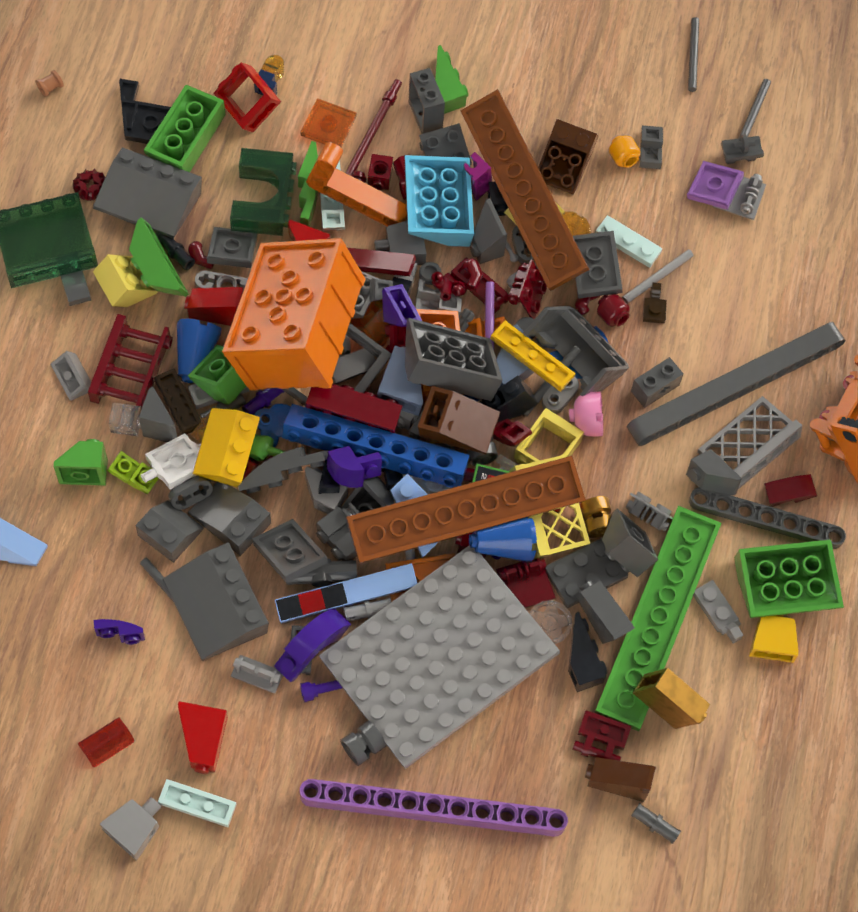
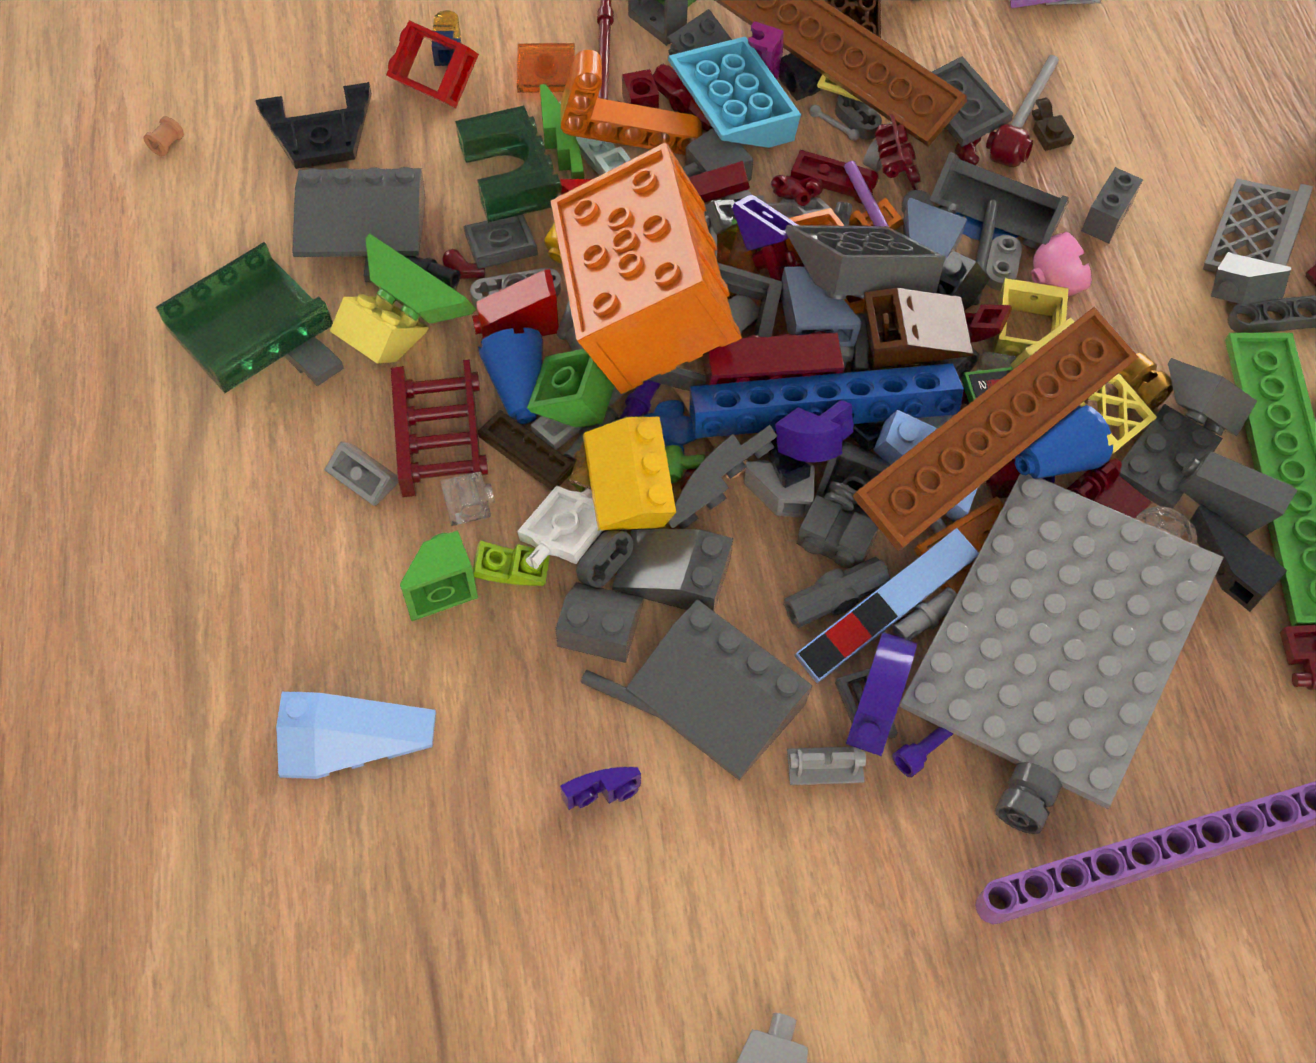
camera: 20 degrees left, 5 degrees down
(80, 186) = (284, 236): dark red gear -> none
(106, 742) = (661, 959): clear red slope -> none
(155, 419) = (516, 478): dark grey slope -> none
(186, 128) = (372, 121): bright green slope -> none
(197, 803) = (844, 991): light aqua plate -> none
(203, 734) = (799, 886): red slope -> none
(290, 550) = (785, 578): dark grey plate -> none
(427, 270) = (761, 185): dark grey tile -> none
(475, 271) = (825, 160): dark red arm -> none
(489, 235) = (820, 111): dark grey slope -> none
(532, 356) = (954, 224): yellow tile -> none
(631, 242) = (997, 74): light aqua plate -> none
(639, 504) = (1211, 348): light grey hinge -> none
(735, 384) = (1197, 178): dark grey beam -> none

